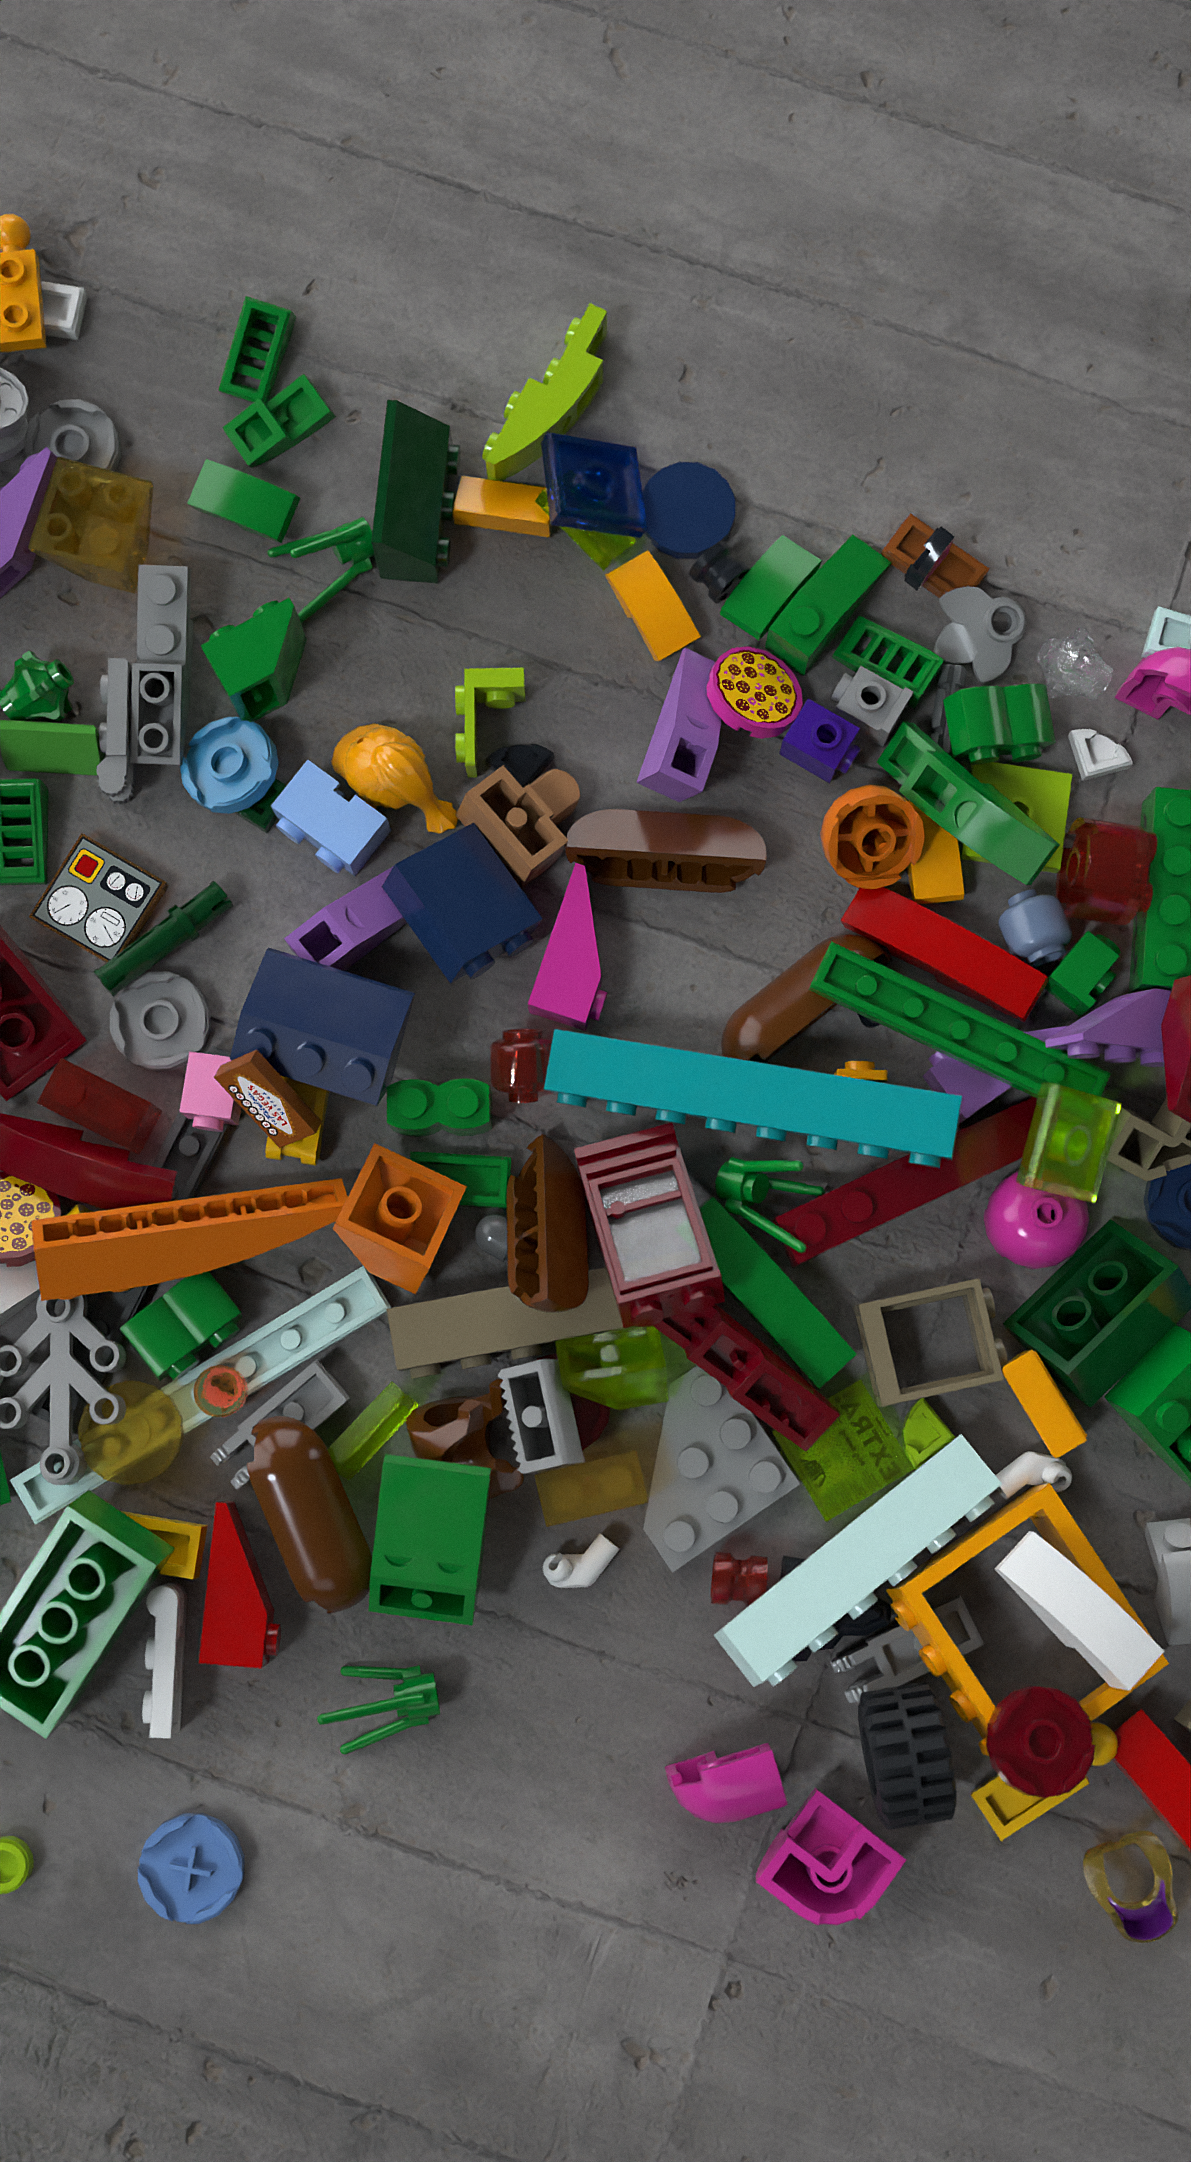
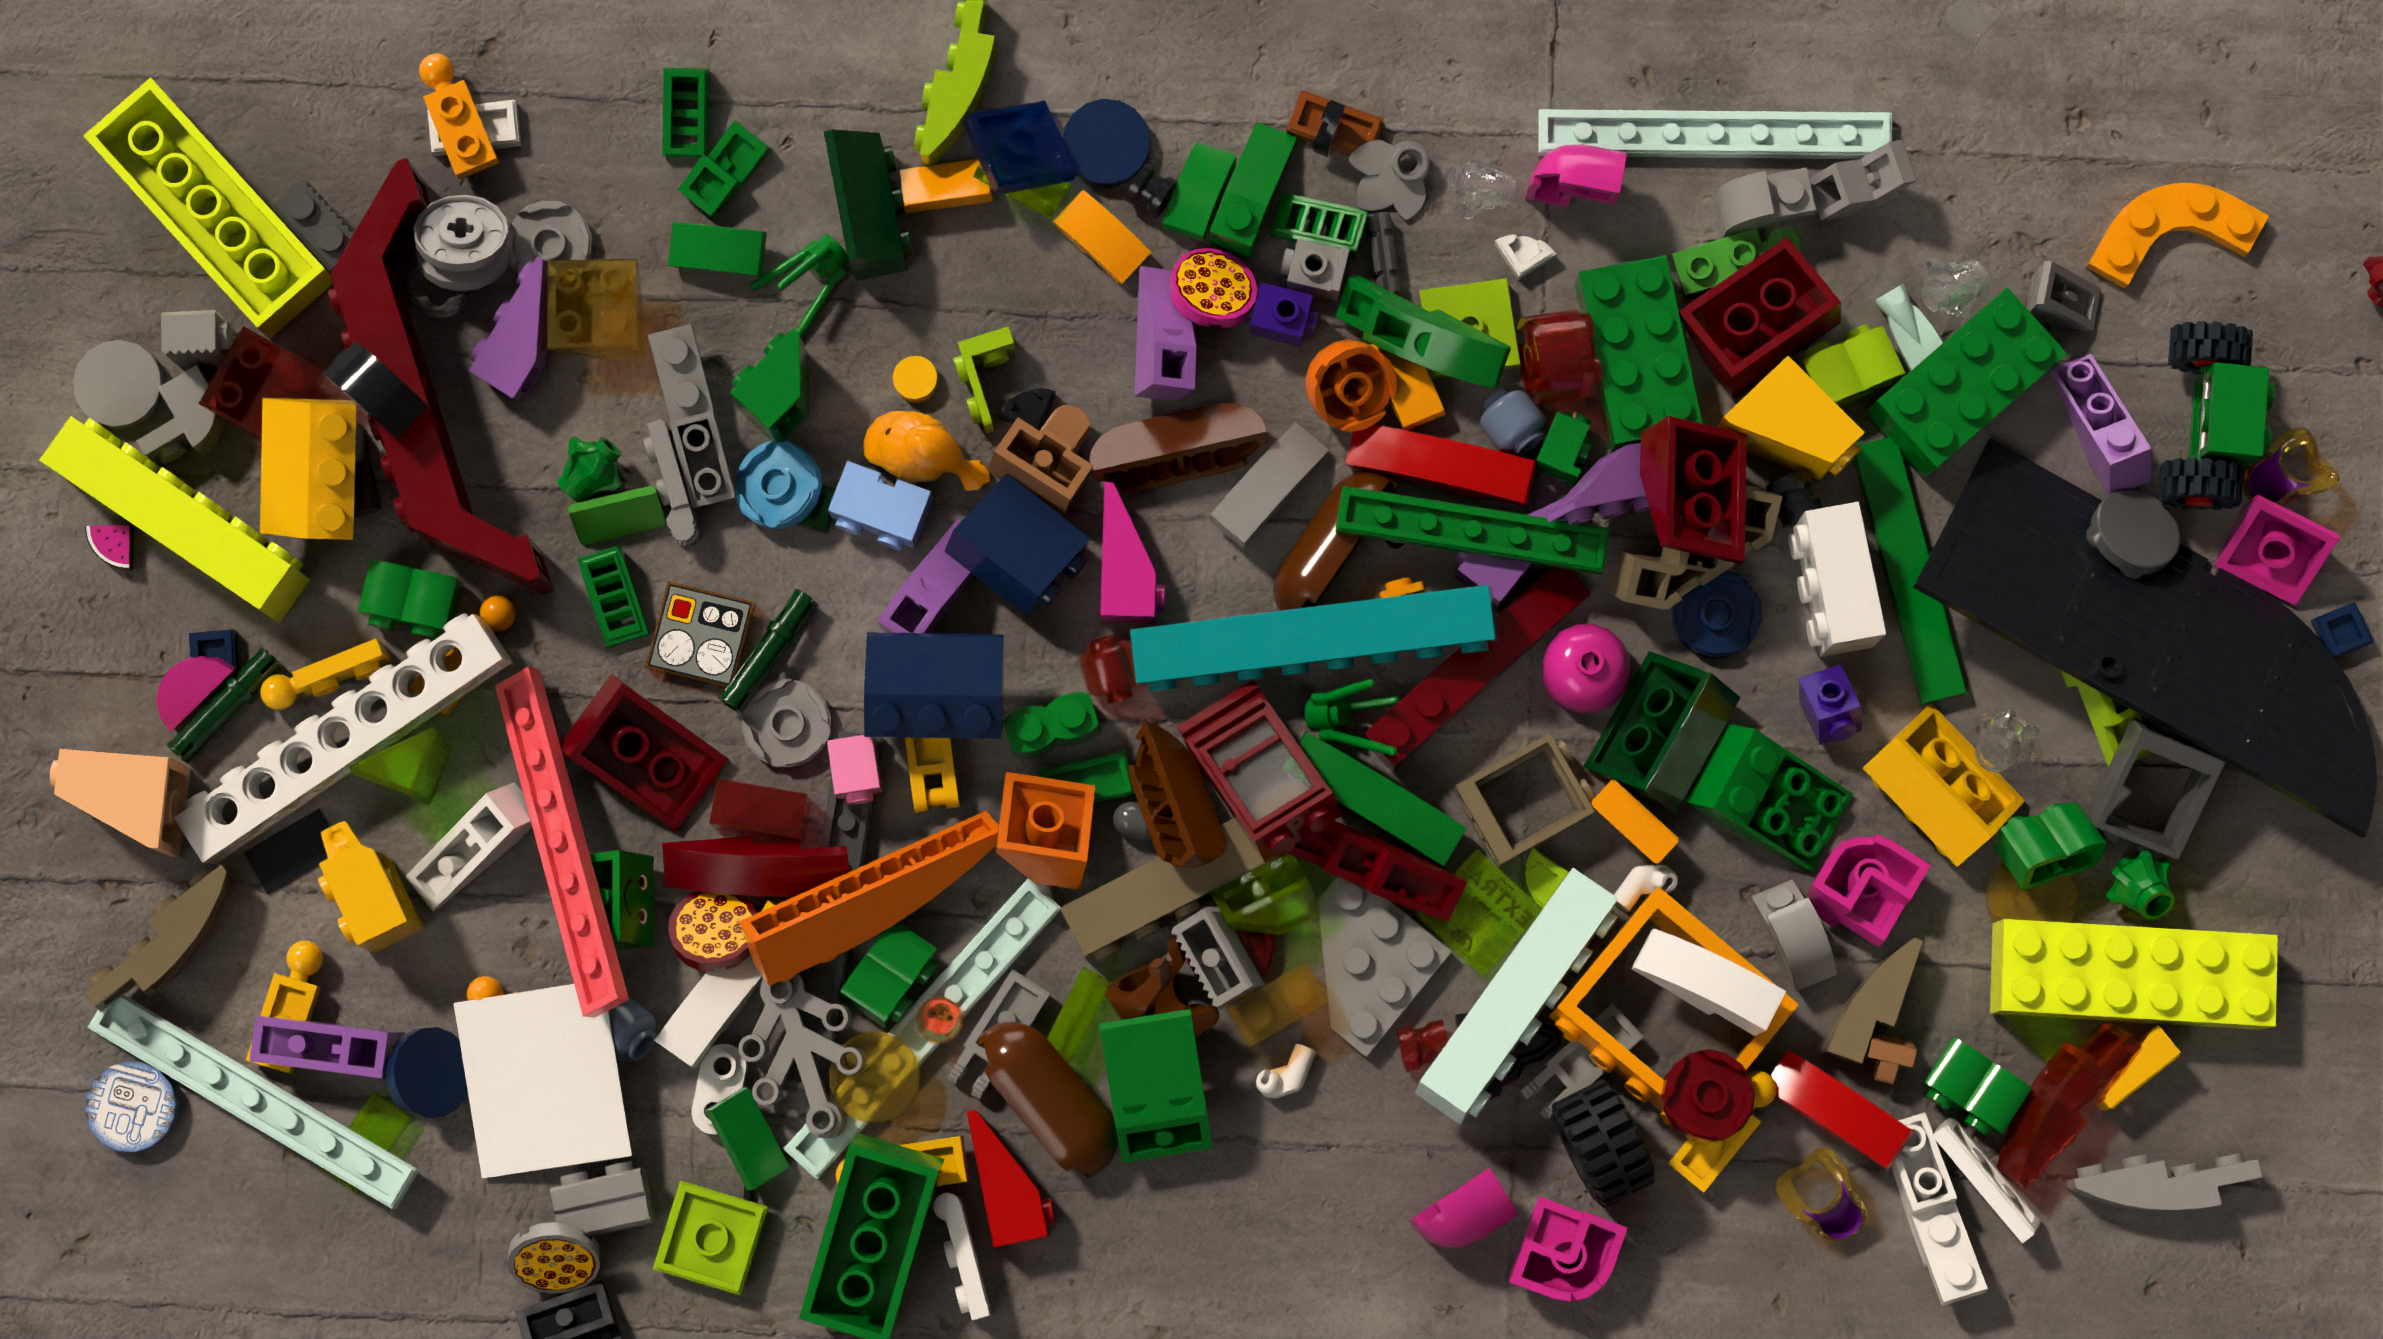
camera: 15 degrees left, 0 degrees up
(267, 1099) = (906, 760): dark orange tile -> none
(410, 698) = (915, 379): none -> yellow tile
(413, 1697) = (1181, 1224): green plant -> none
(750, 919) = (1268, 485): none -> light grey slope
(999, 722) = (1430, 253): green brick -> none
(1068, 1142) = (1591, 597): clear neon green slope -> none

